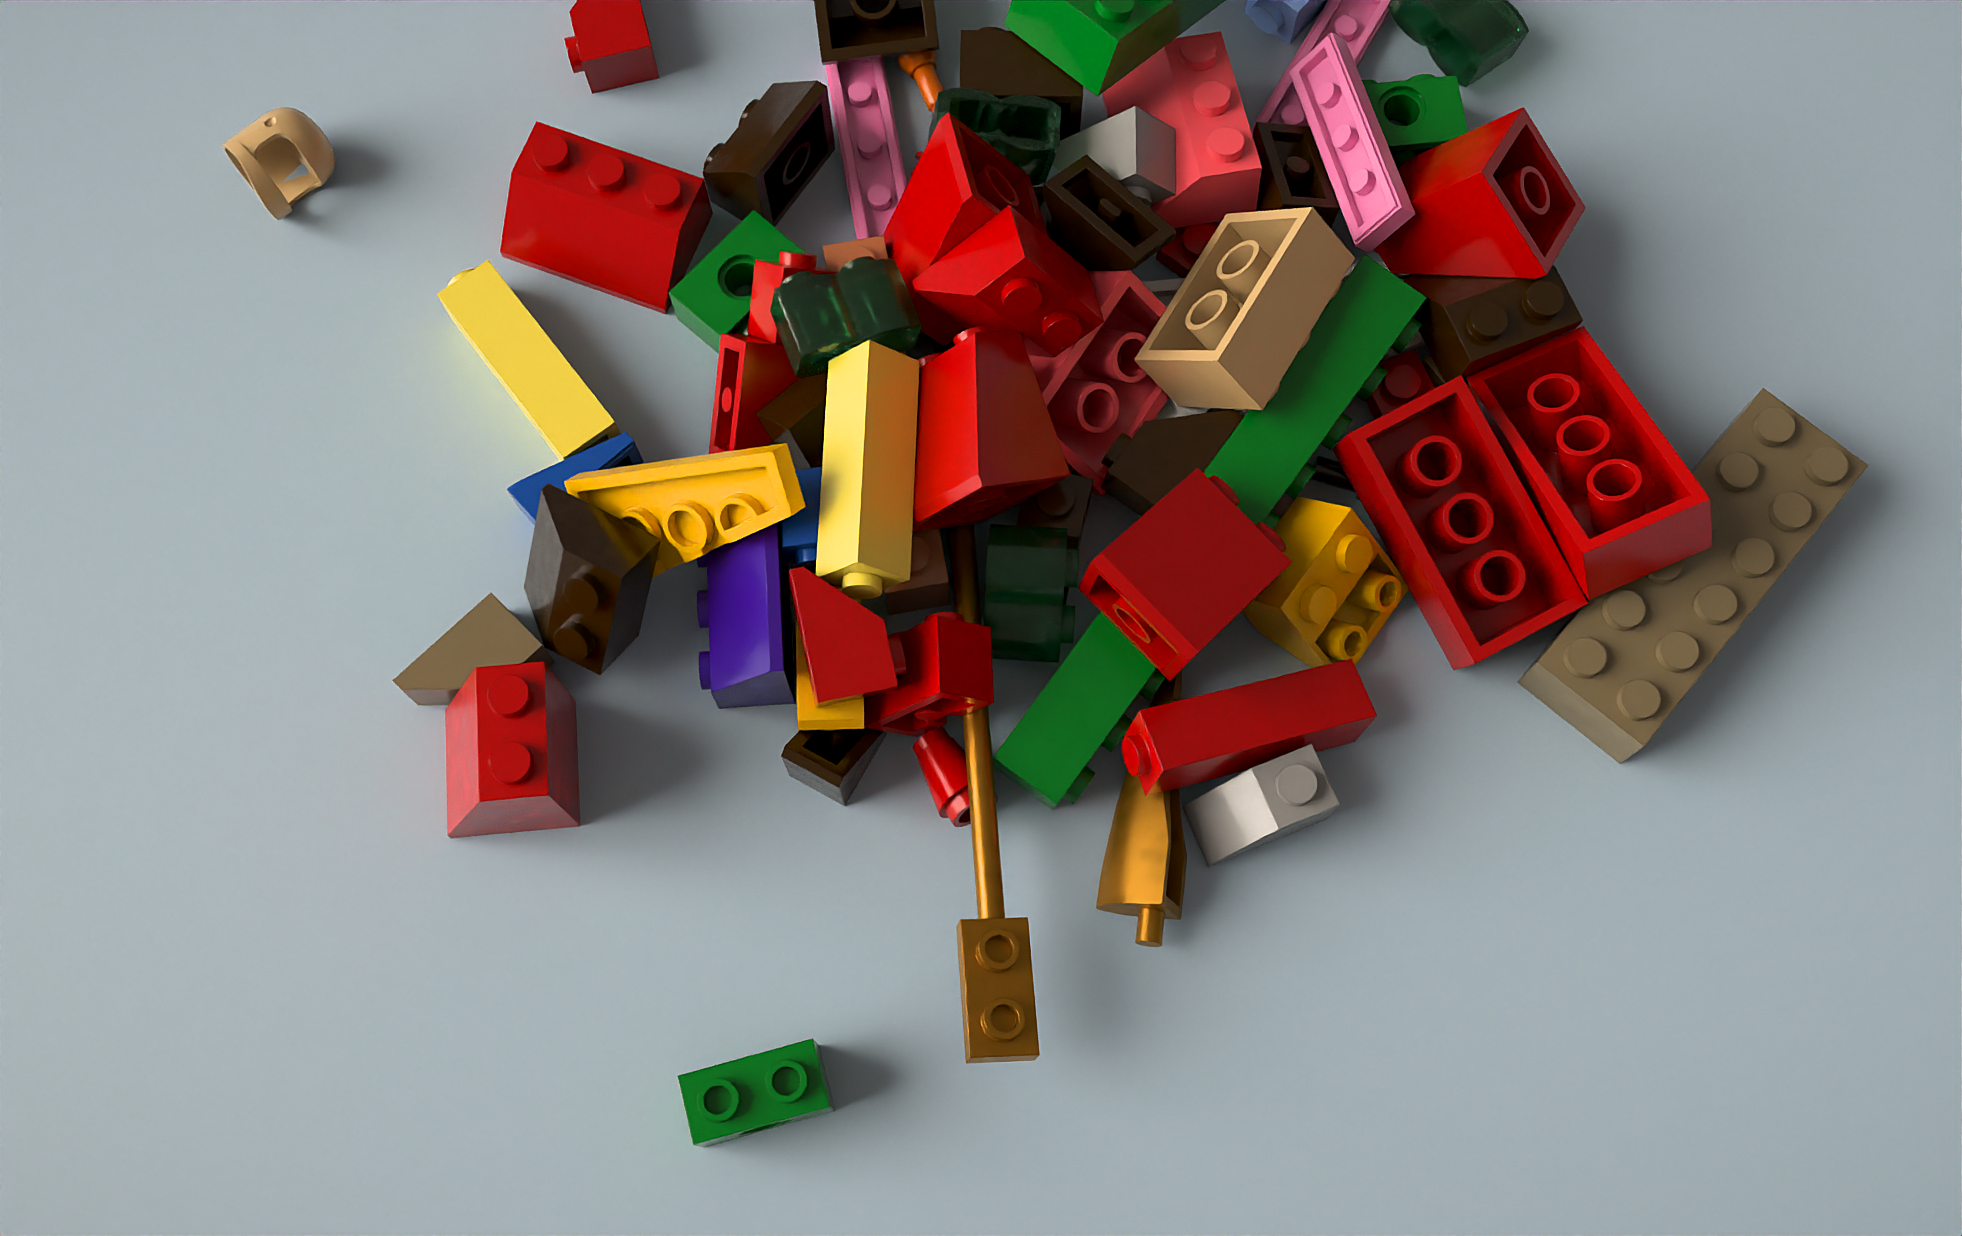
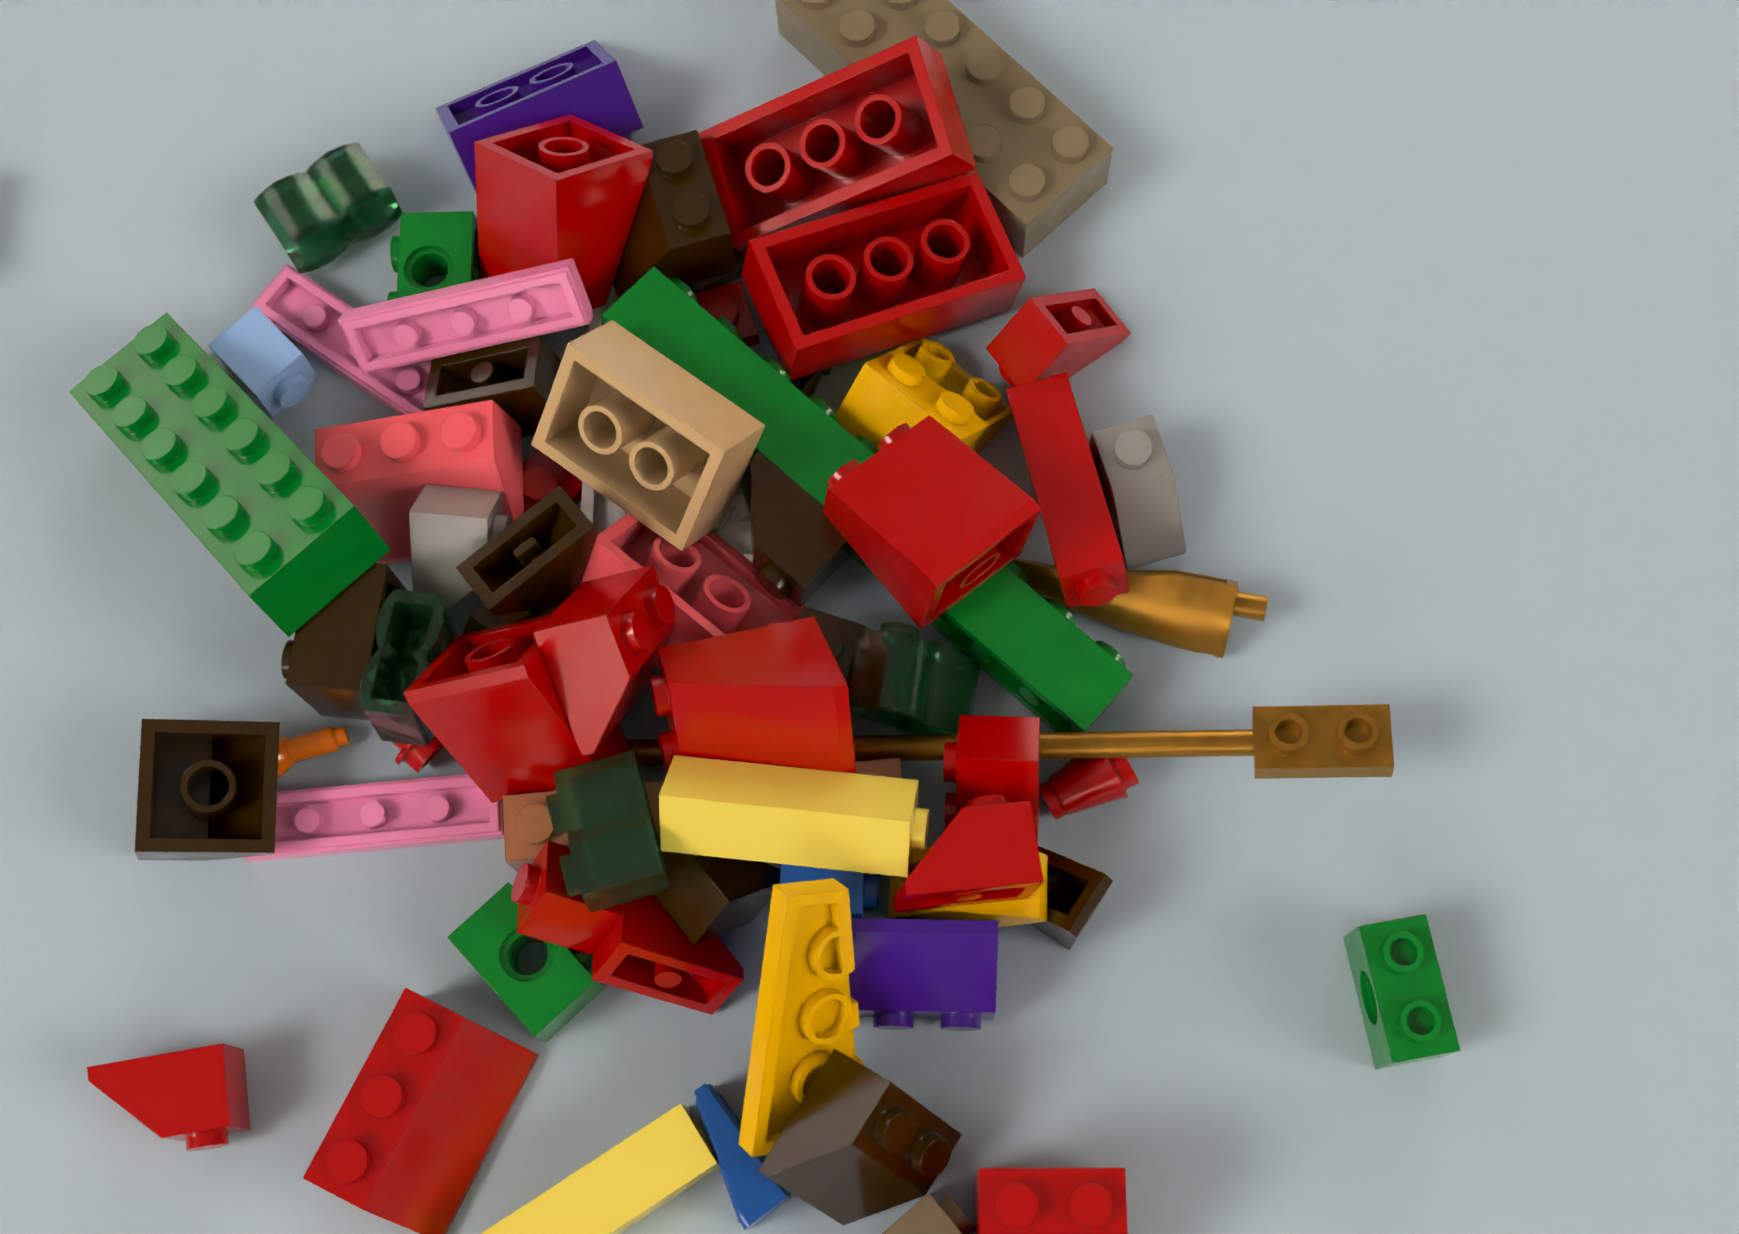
camera: 80 degrees left, 0 degrees up
(772, 151) = (371, 919): dark brown slope -> none
(1425, 715) = (1056, 336): none -> red slope
(1623, 217) = (574, 83): none -> dark purple slope

